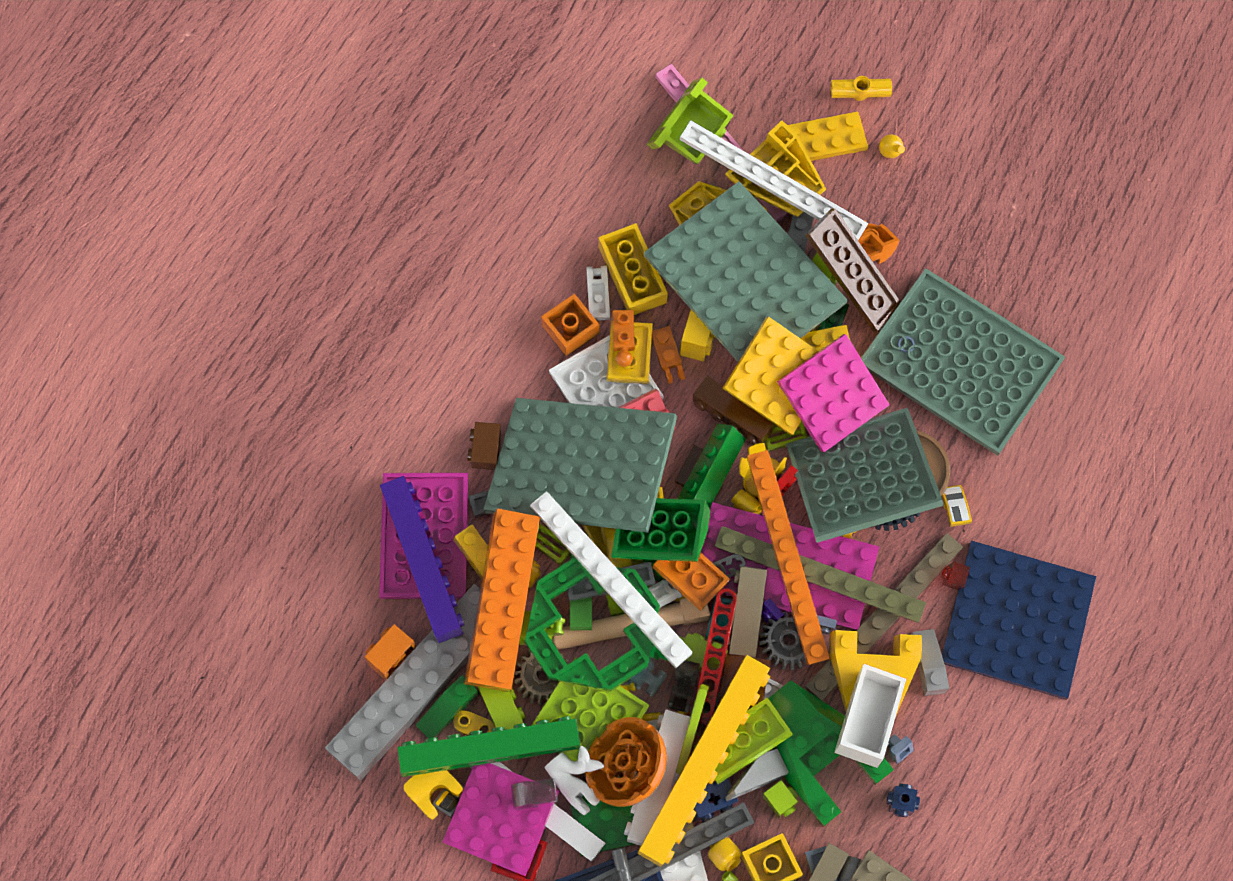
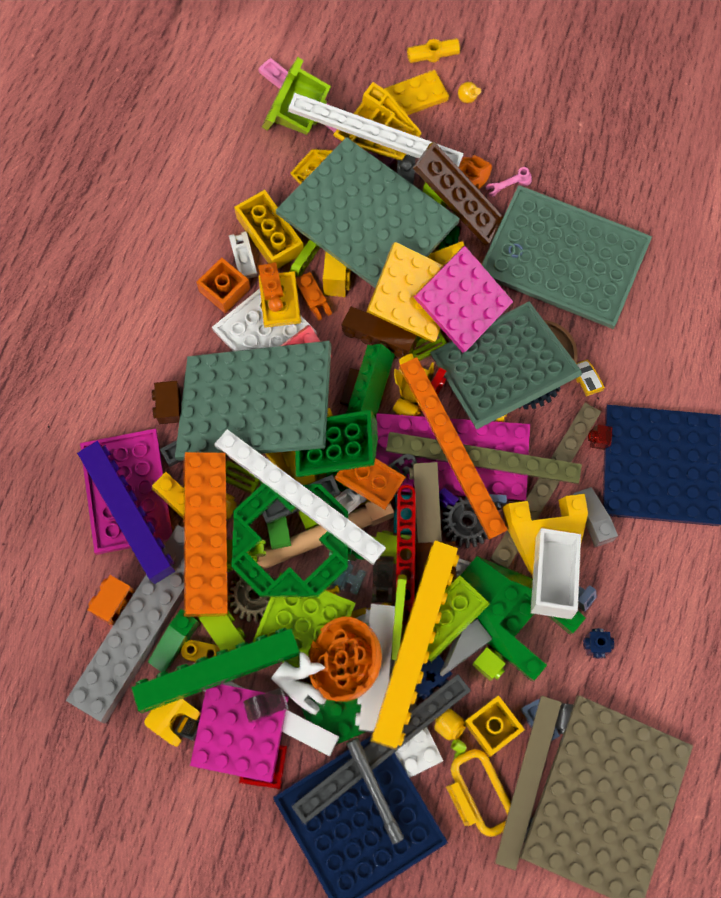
camera: 10 degrees left, 0 degrees up
(665, 310) = (304, 258): none -> lime beam
(933, 264) = (523, 178): none -> bright pink brick

